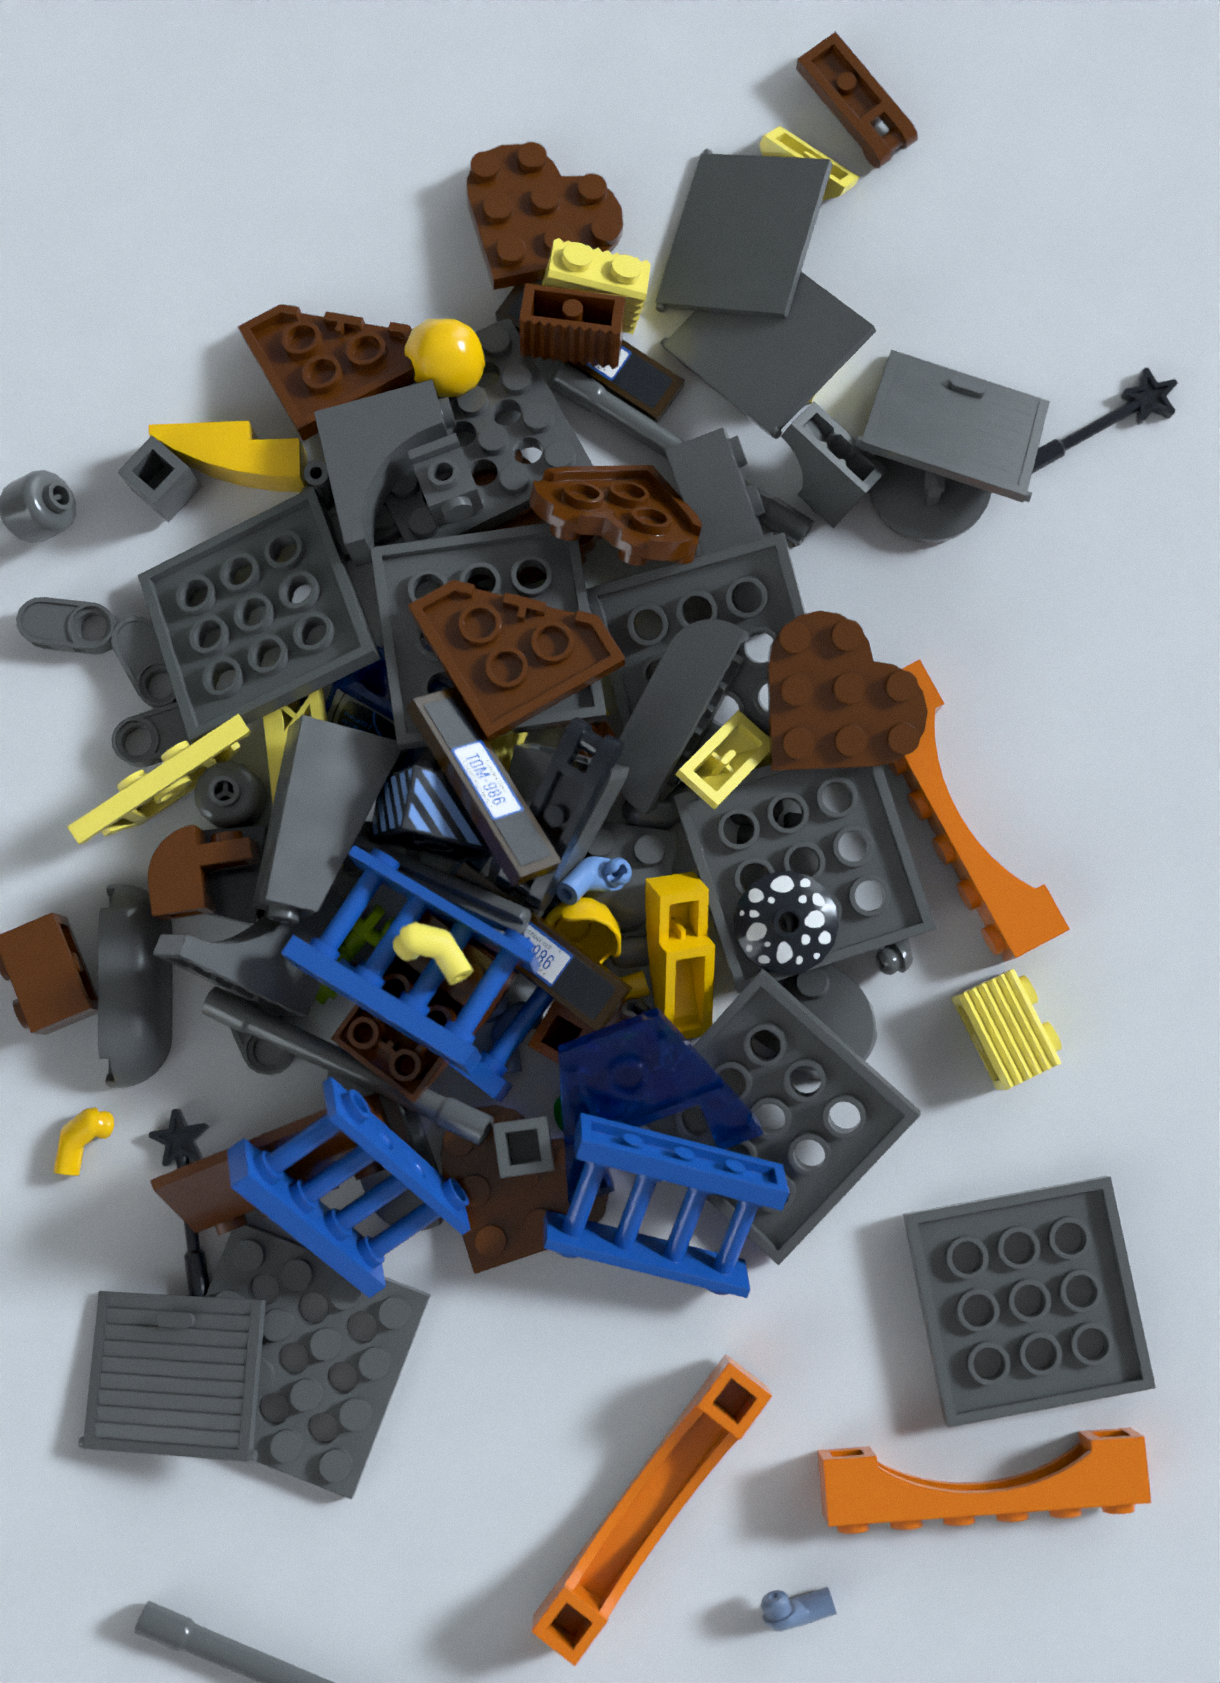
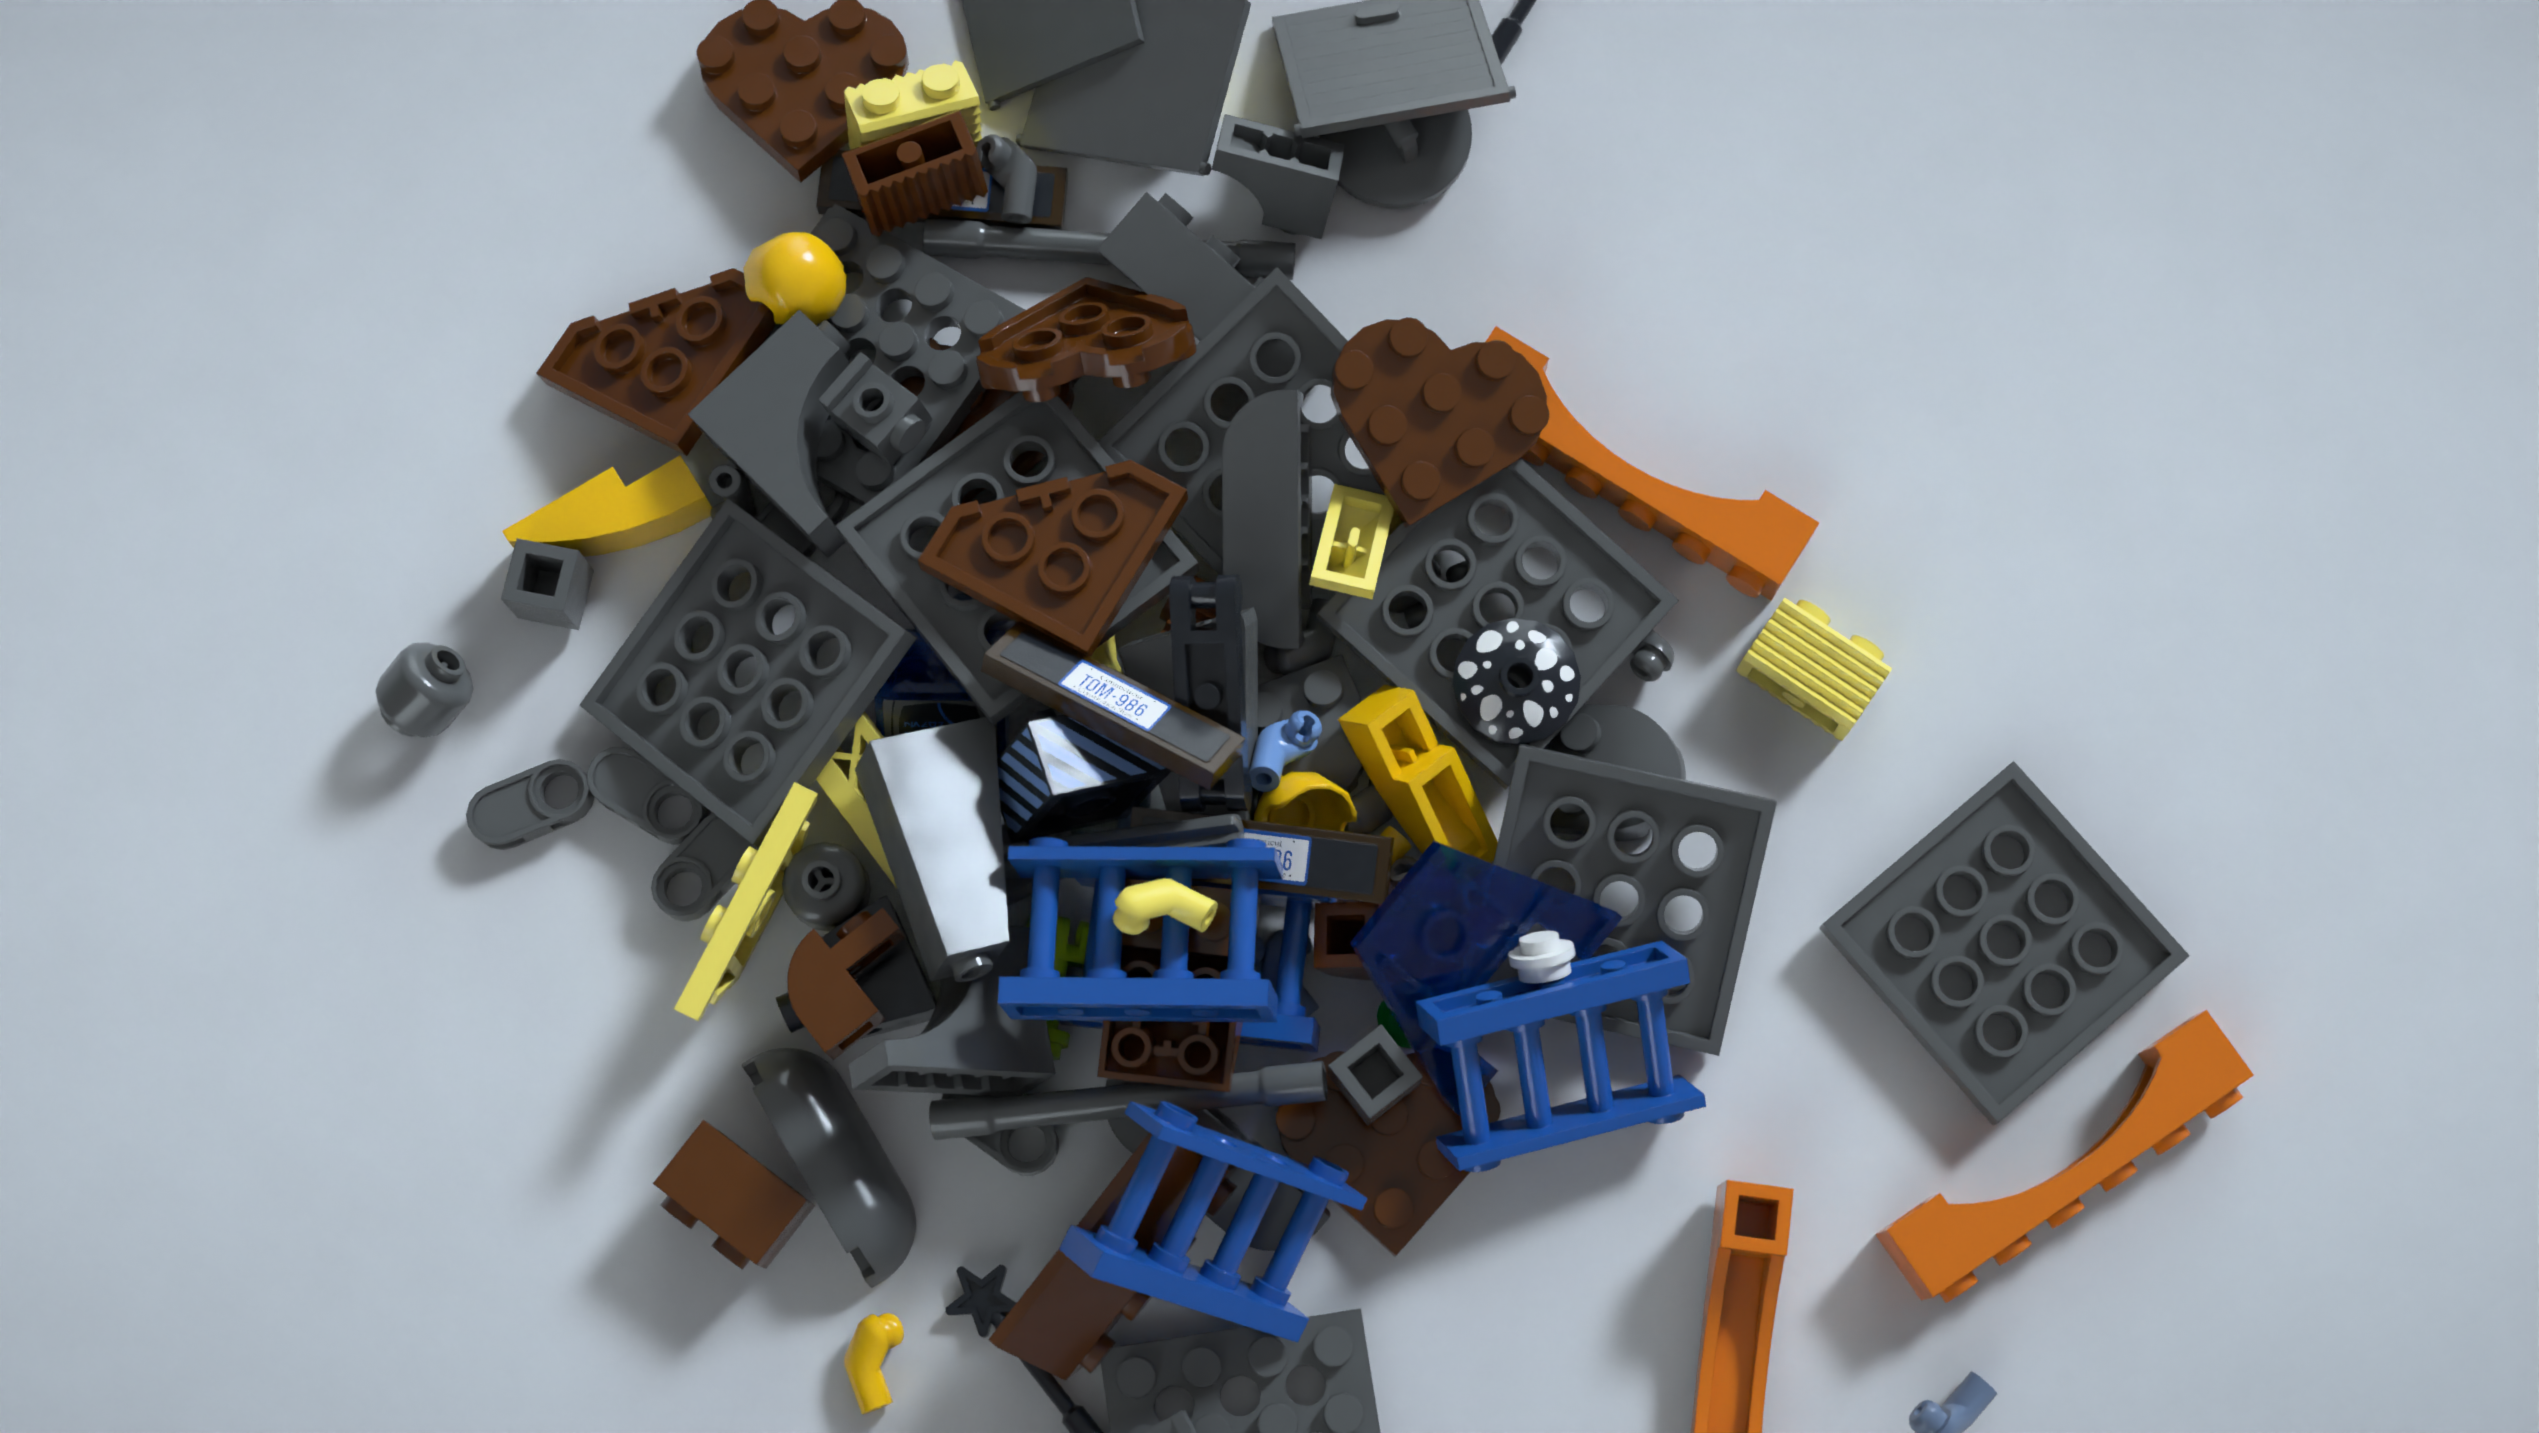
camera: 30 degrees left, 5 degrees down
(644, 363) = (1014, 172): none -> dark grey arm
(687, 1133) = (1542, 957): none -> white plate

